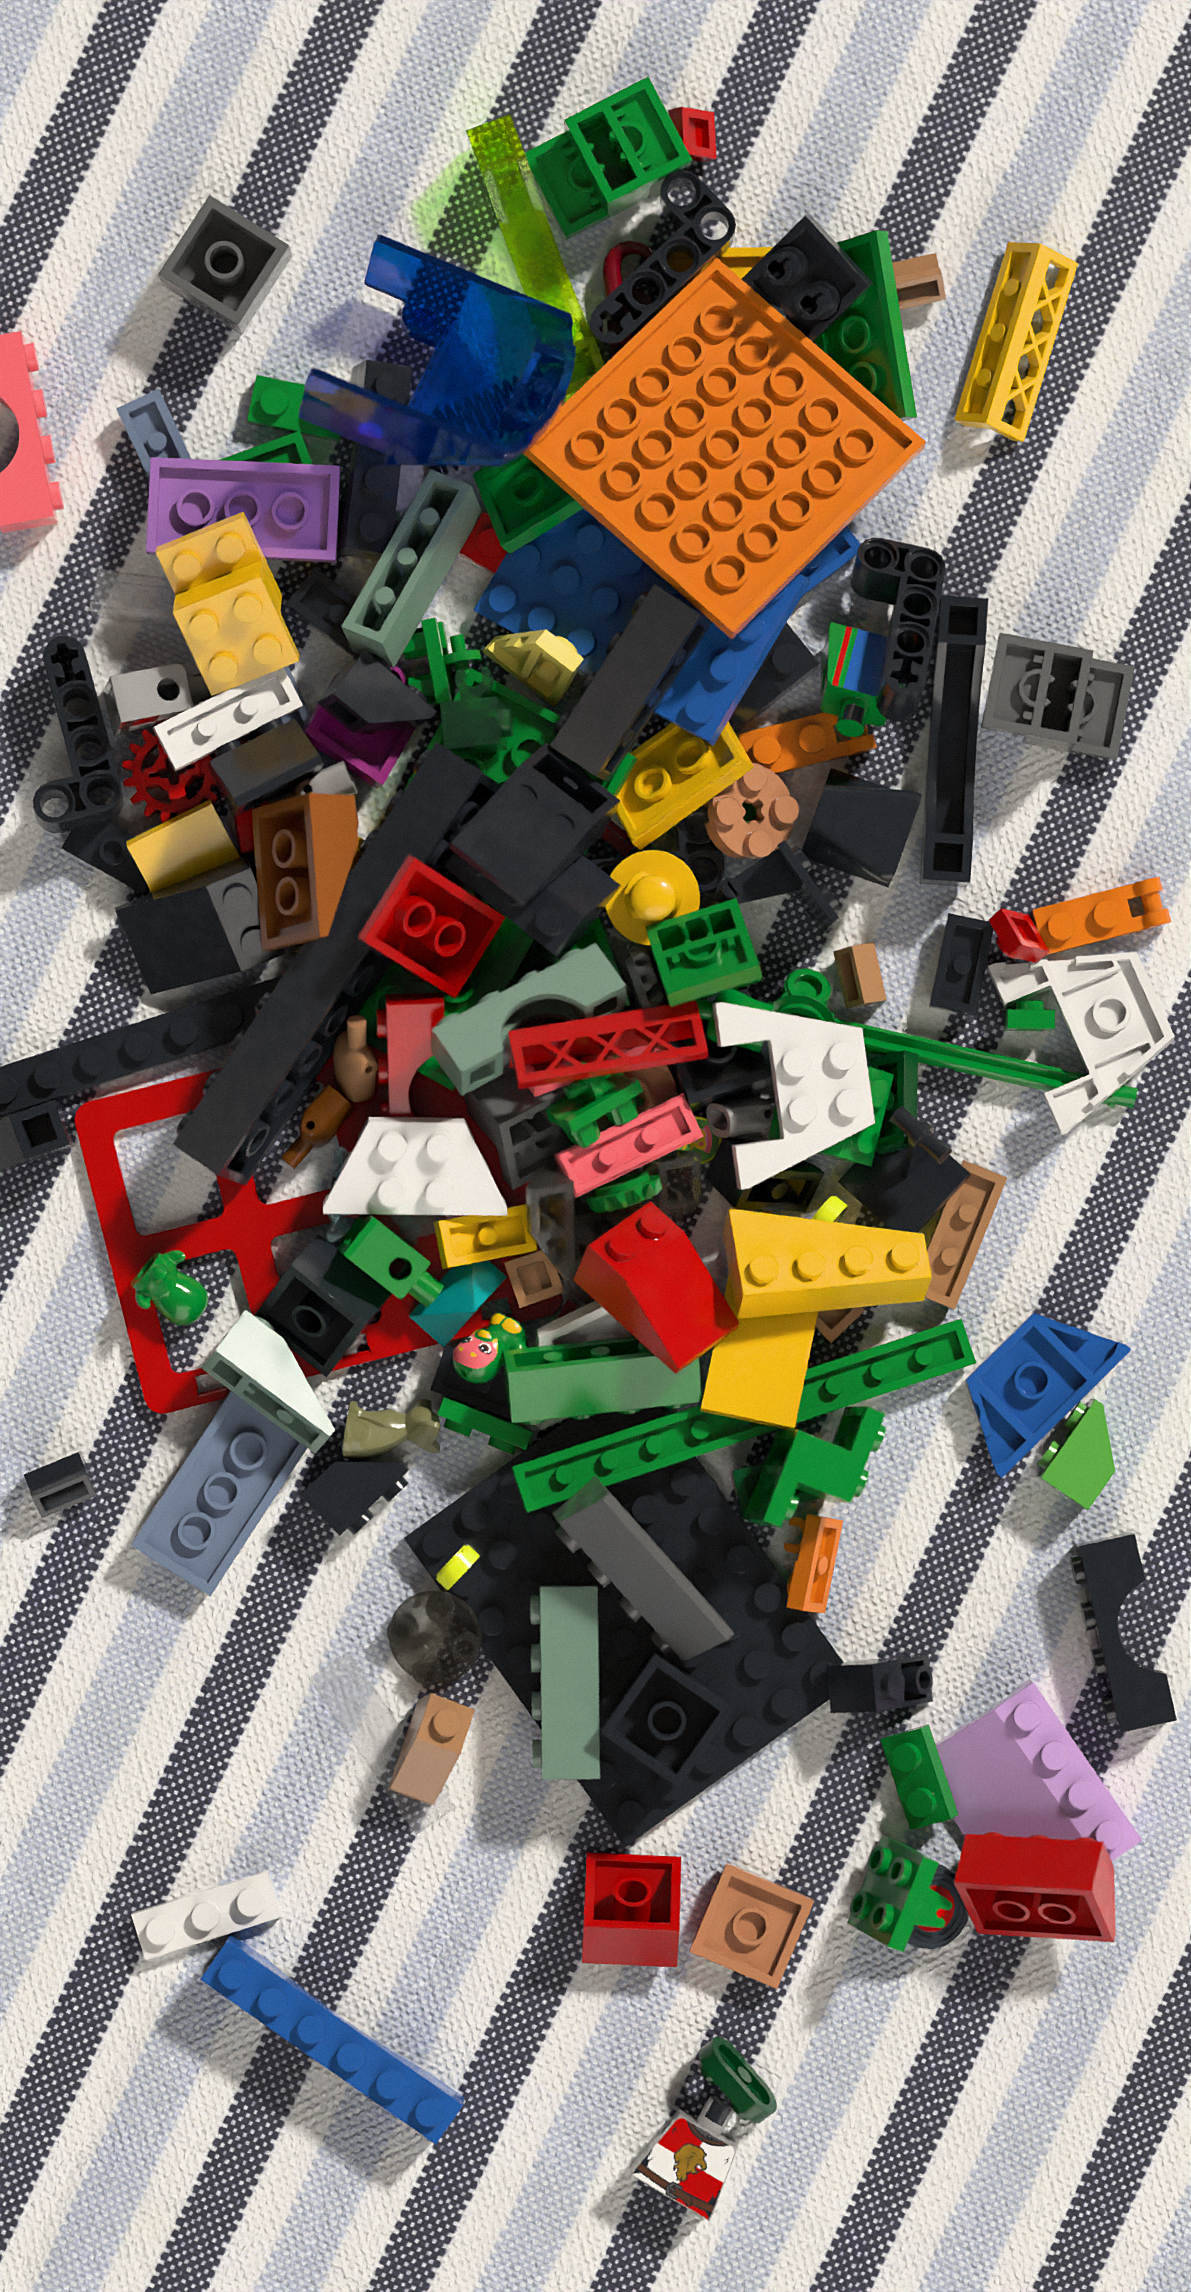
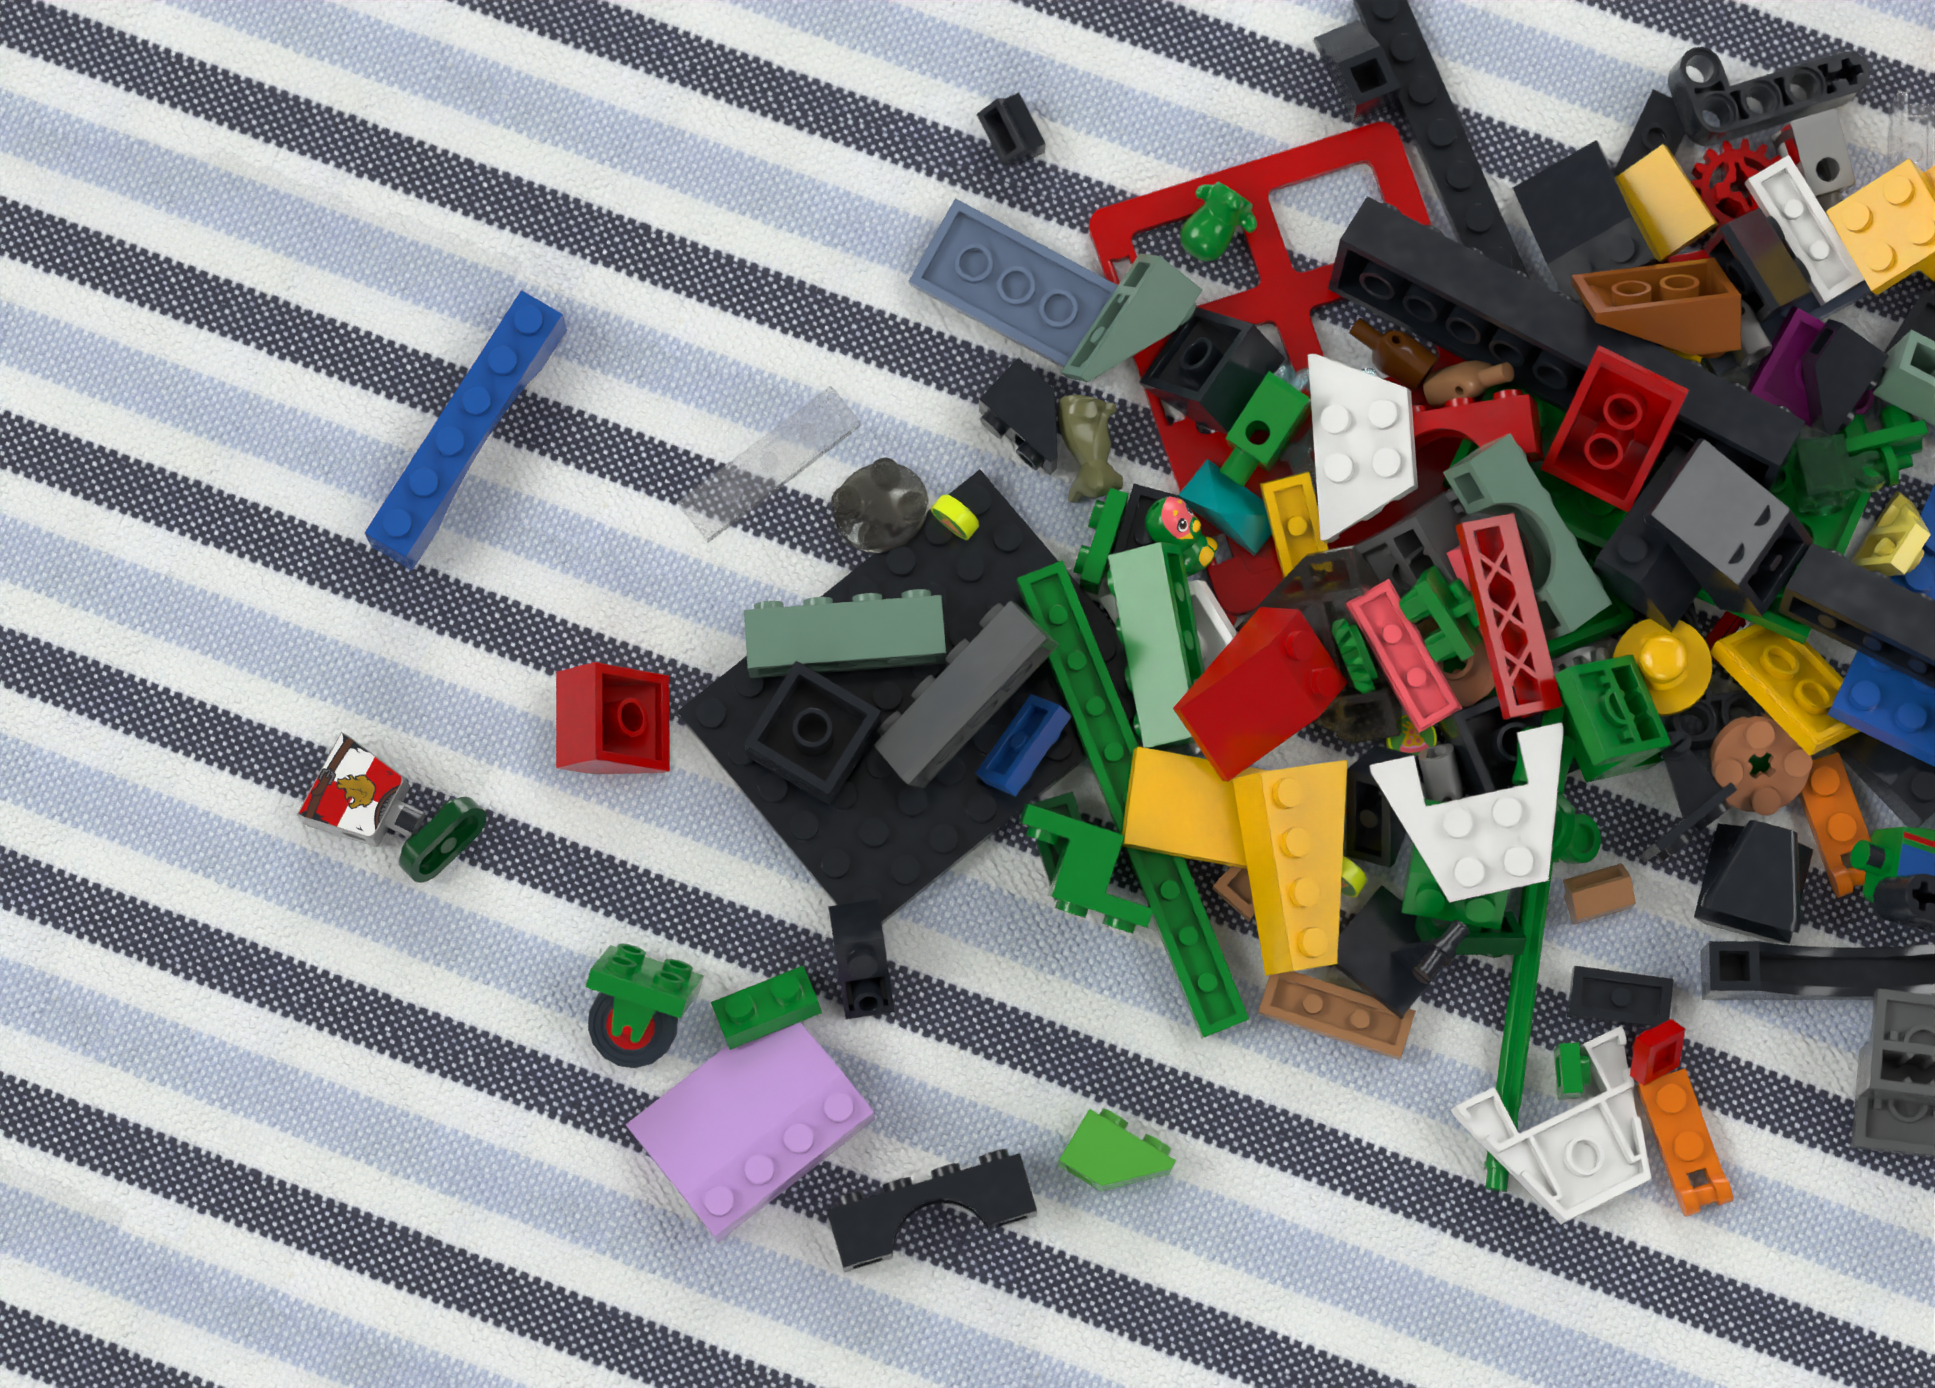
camera: 90 degrees right, 10 degrees down
(206, 1914) = (585, 303): white plate -> none
(431, 1748) = (767, 505): medium nougat slope -> none
(533, 1278) = (1254, 577): medium nougat plate -> none
(687, 1516) = (1023, 745): none -> blue plate
(751, 1925) = (602, 844): nougat plate -> none
(813, 1572) = (982, 884): orange plate -> none
(1035, 1383) = (1186, 1102): blue wing -> none
(1038, 1887) = (659, 1130): red slope -> none

